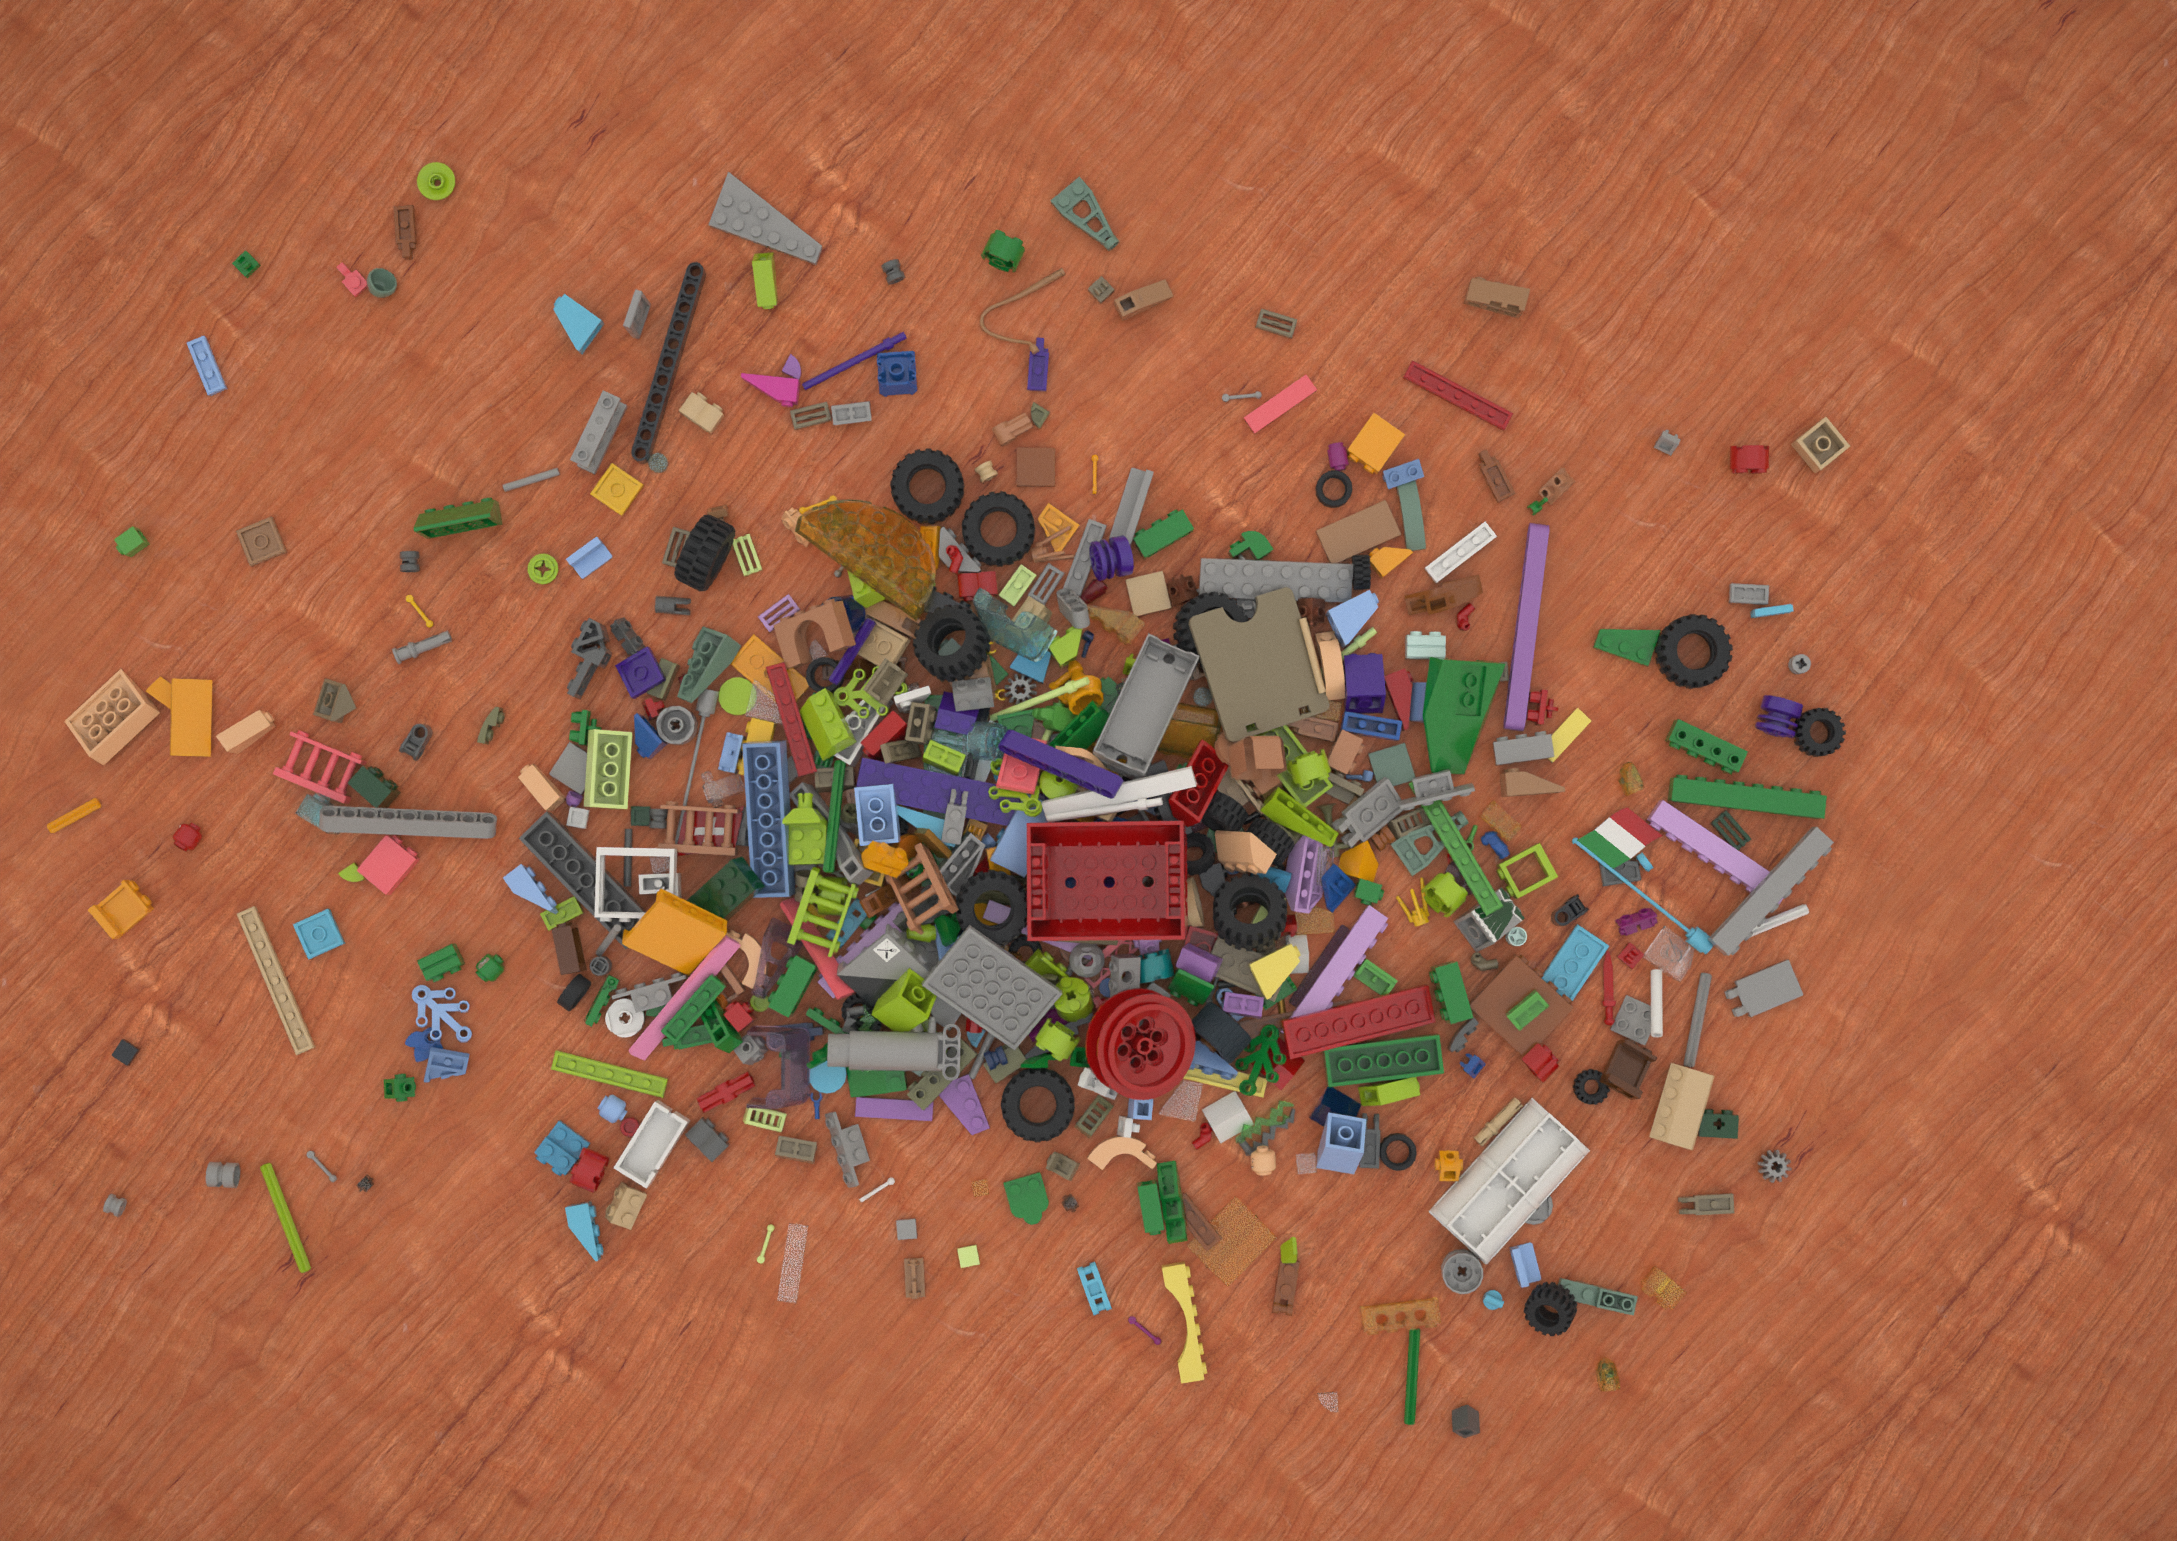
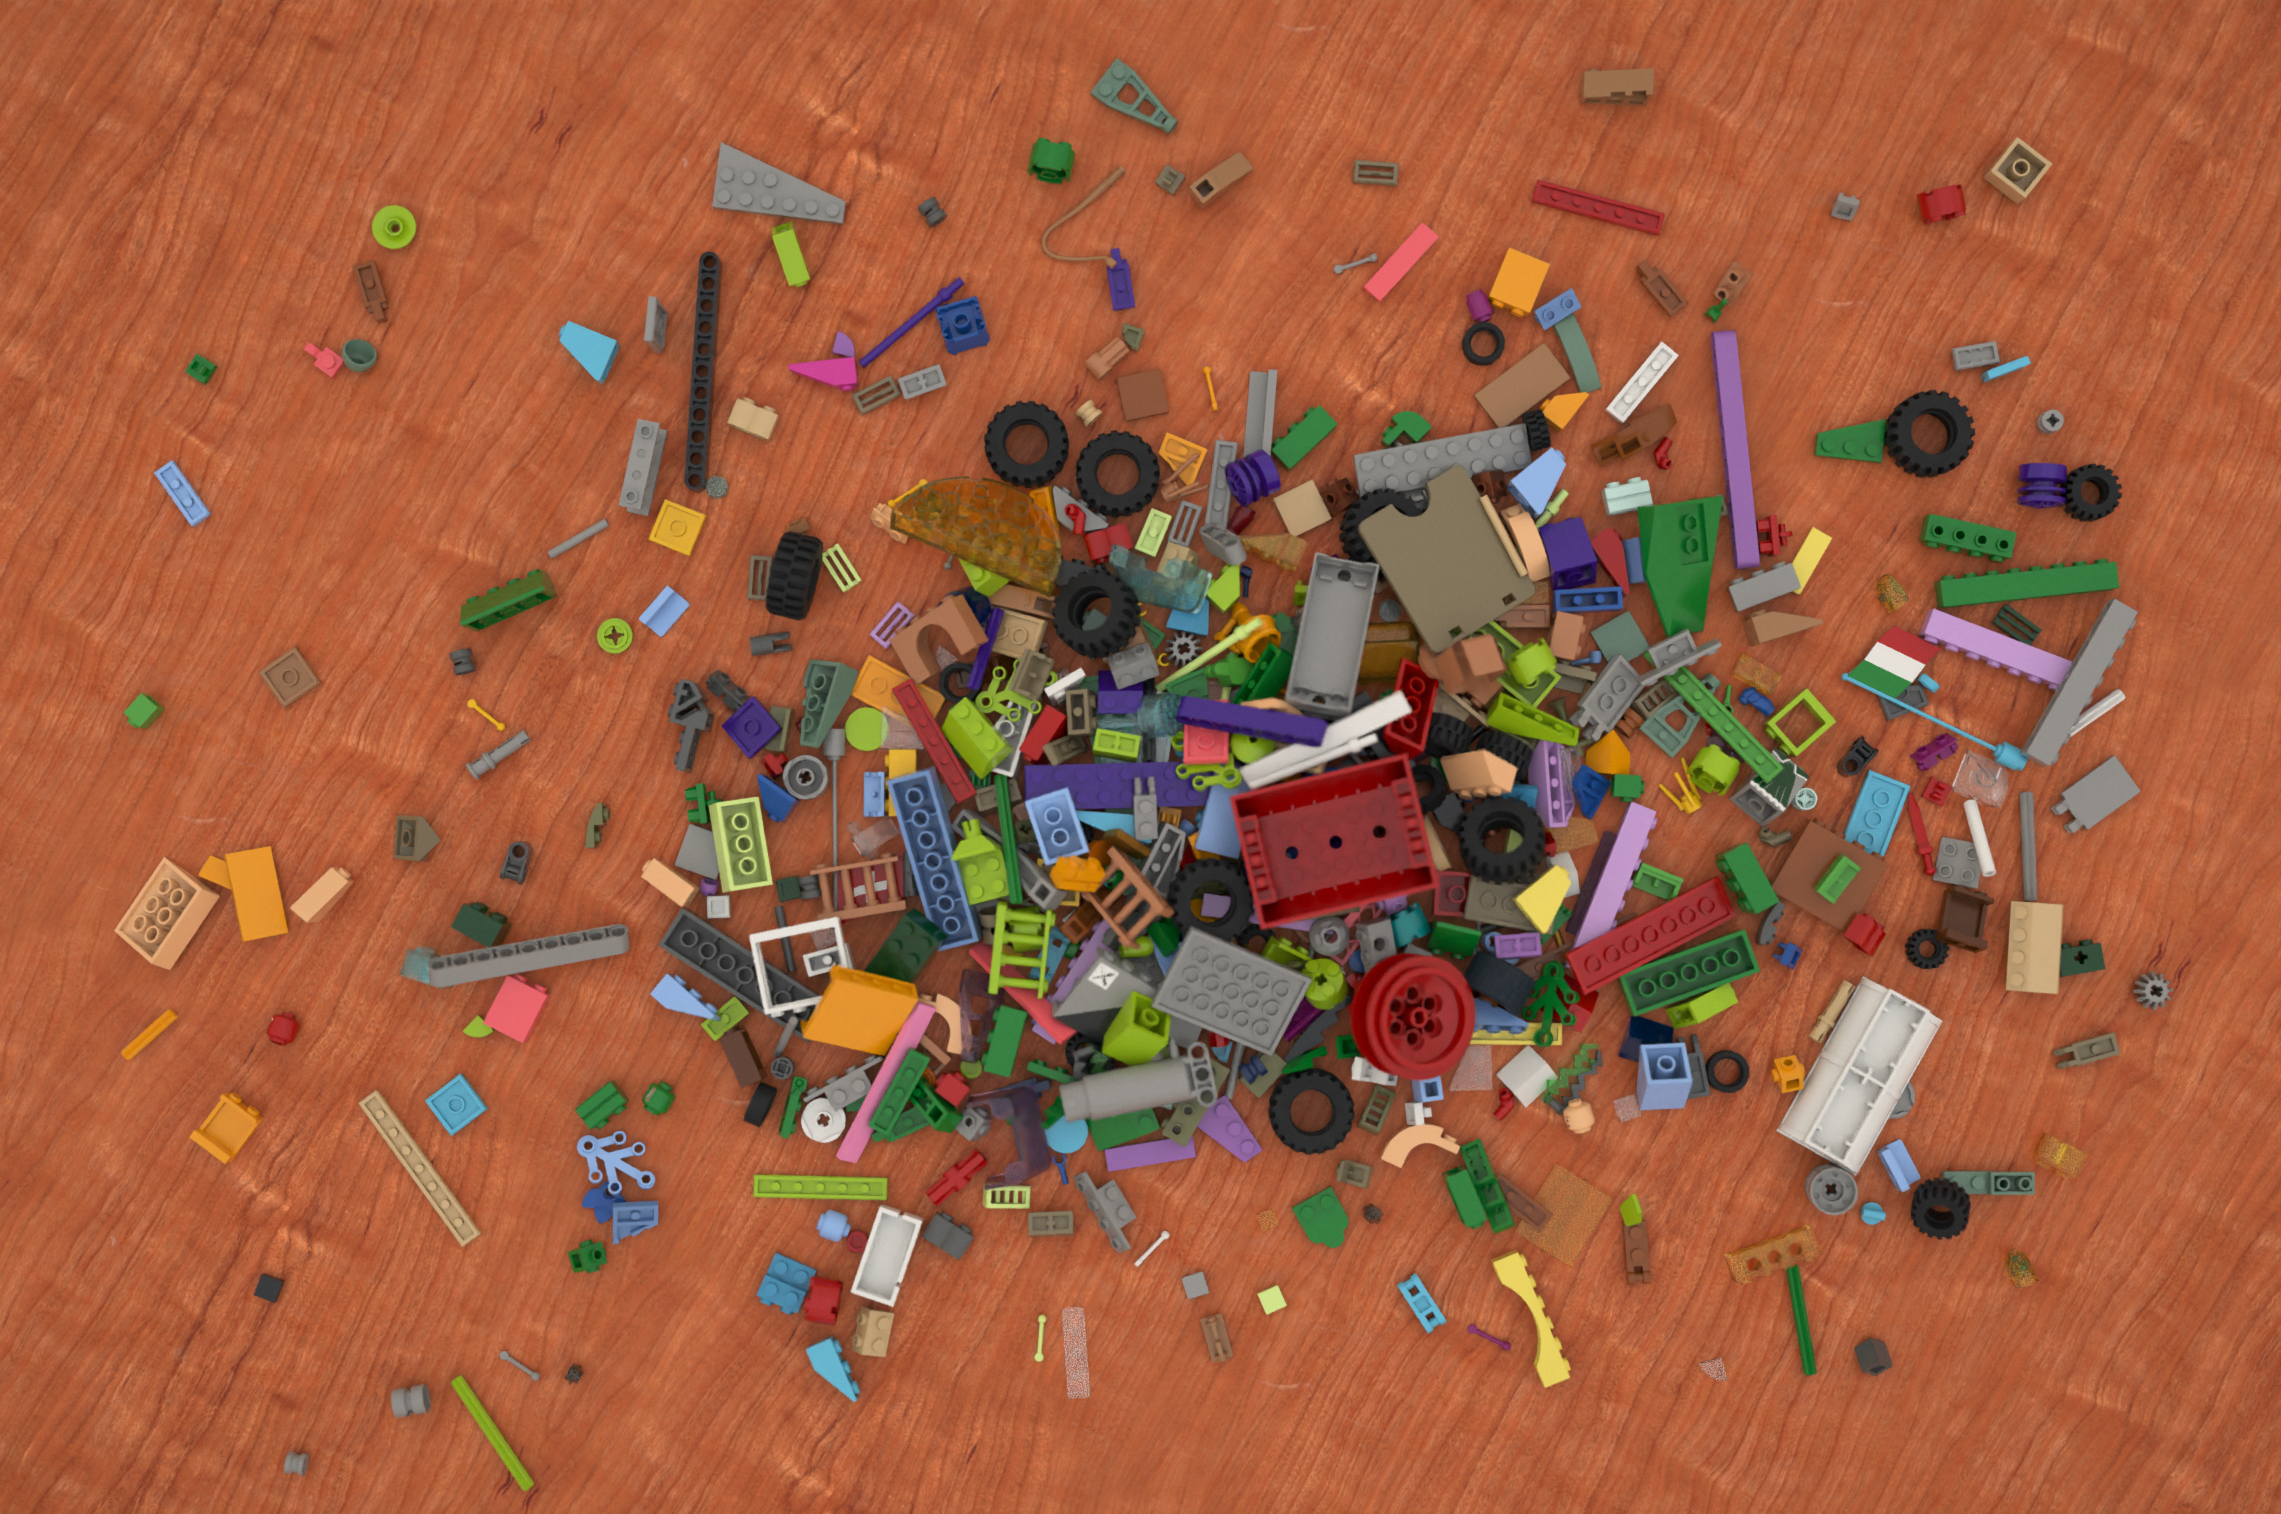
camera: 10 degrees left, 0 degrees up
(304, 778) = (400, 932): coral fence -> none
(1057, 1039) = (1317, 1032): lime brick -> none
(1199, 962) = (1457, 909): medium lavender hinge -> none

